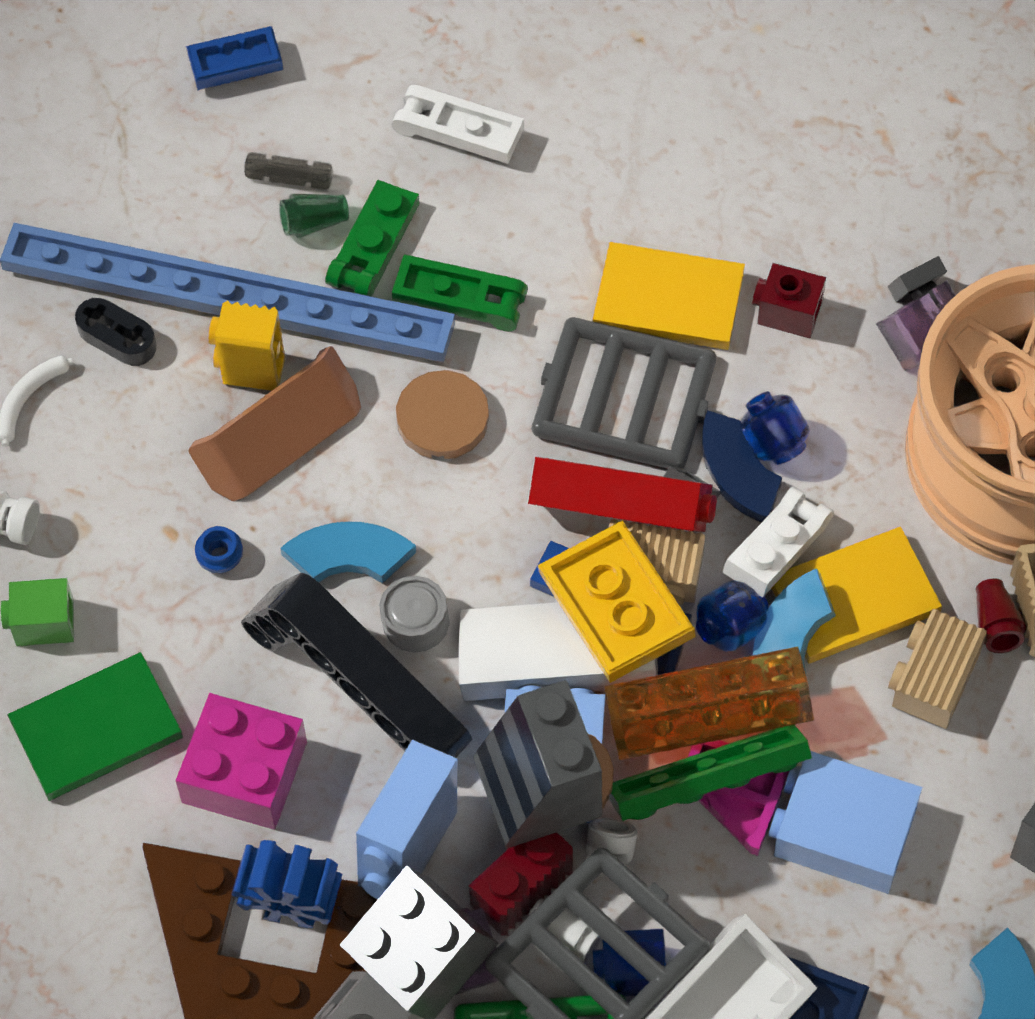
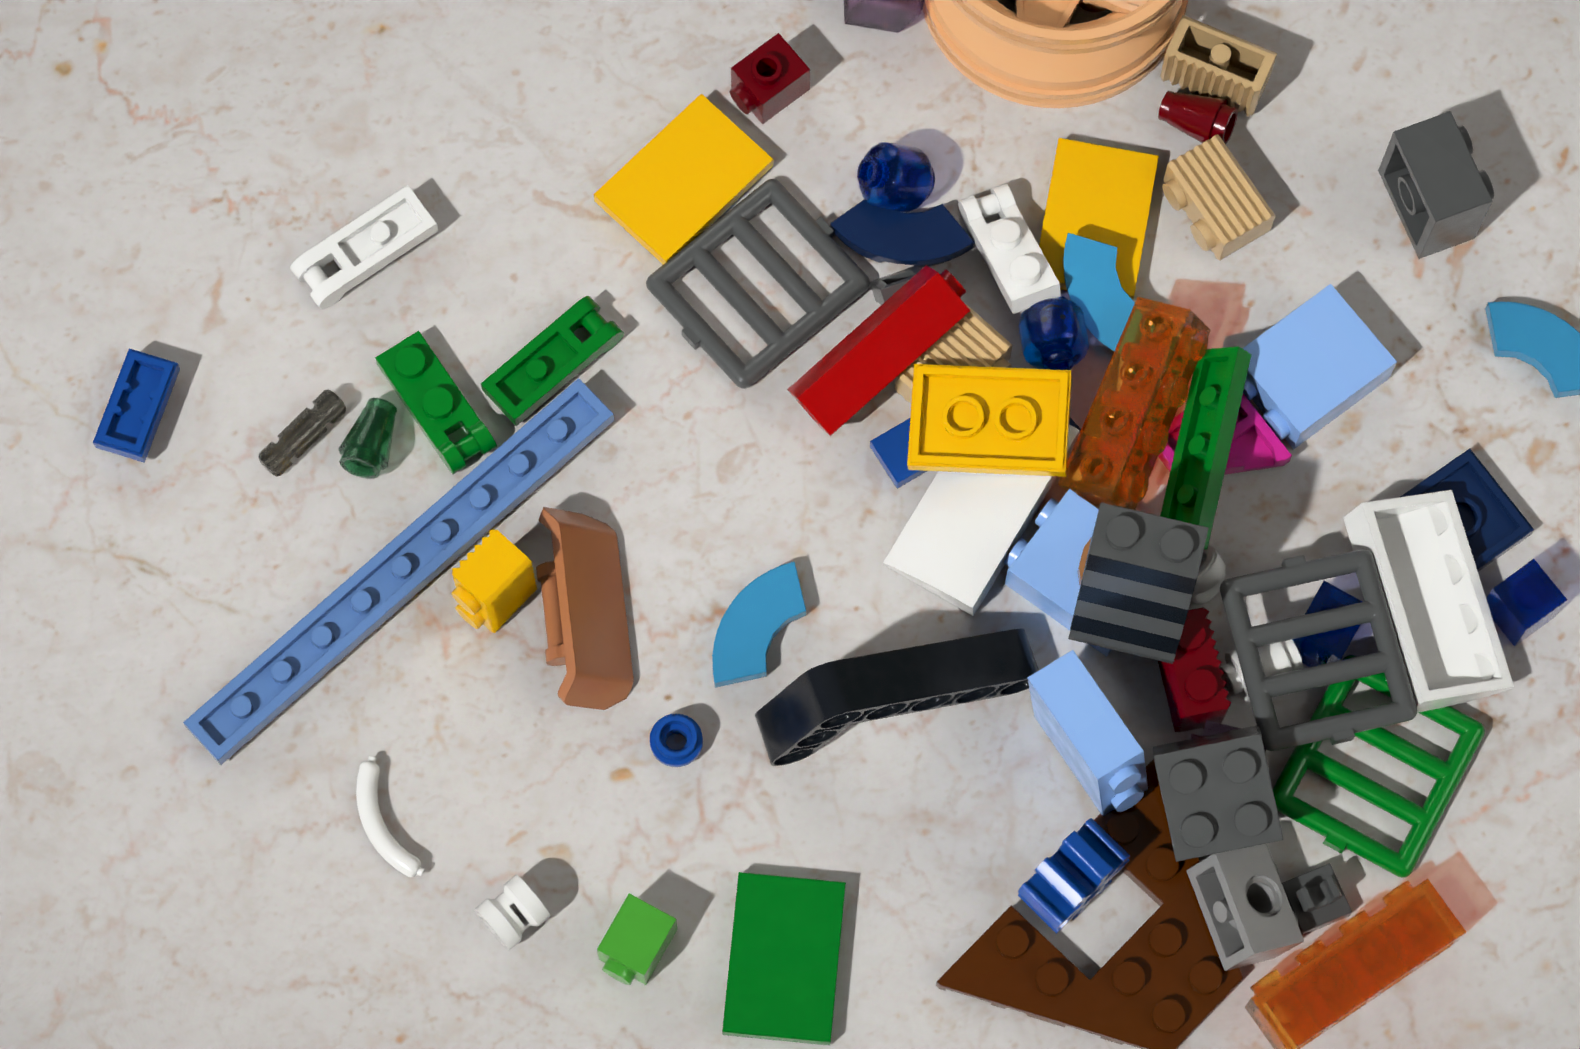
camera: 60 degrees left, 10 degrees up
(112, 338) = (364, 686): black beam -> none
(241, 761) = (917, 844): dark pink brick -> none
(414, 614) = (863, 605): light grey wheel -> none
(442, 414) = (670, 455): medium nougat tile -> none

